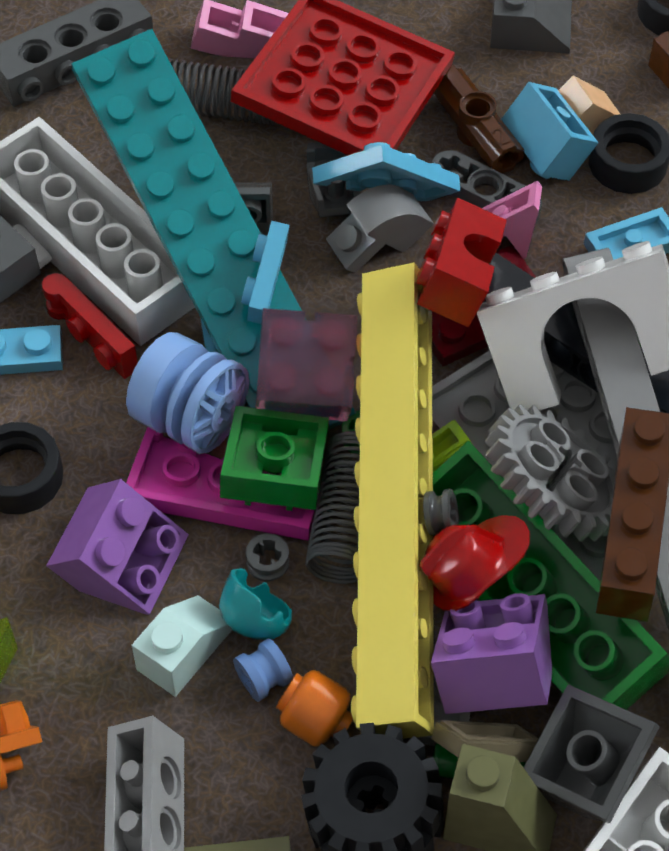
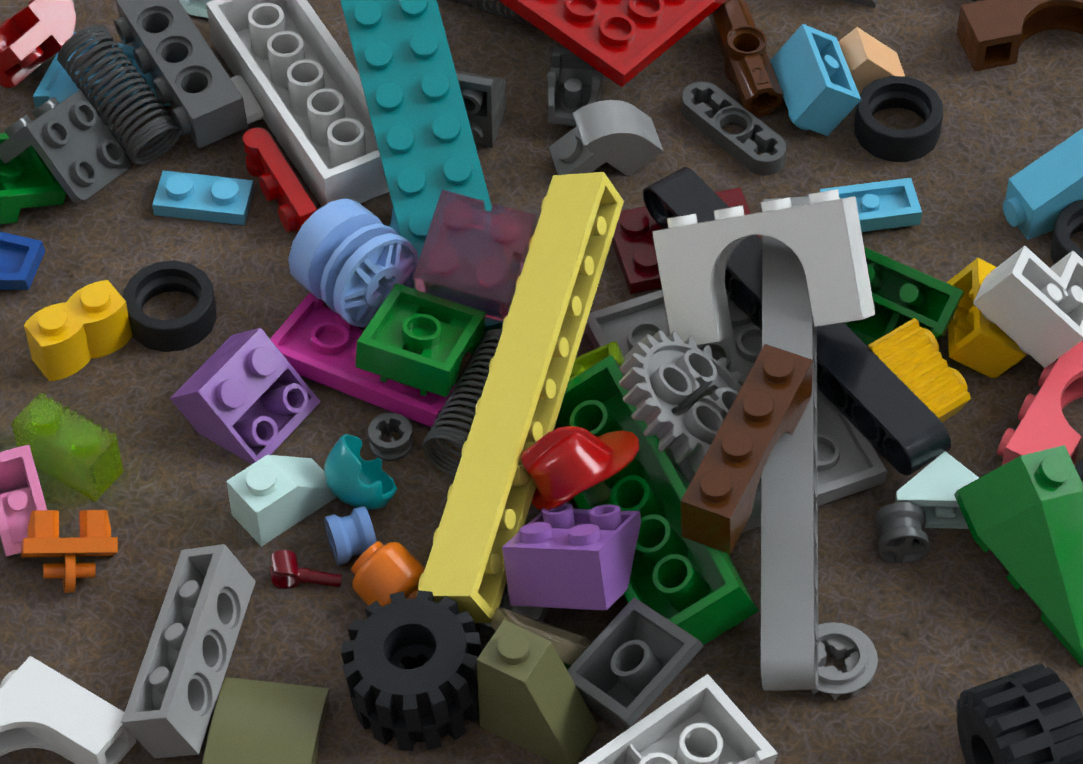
camera: 15 degrees right, 5 degrees down
(209, 720) = (286, 574): none -> dark red hand
(269, 253) = (467, 144): medium azure plate -> none
(384, 166) = (615, 79): medium azure wing -> none
(440, 511) = (561, 412): dark grey bush -> none
(458, 261) = (653, 179): red arch -> none
(521, 213) = (743, 158): bright pink slope -> none

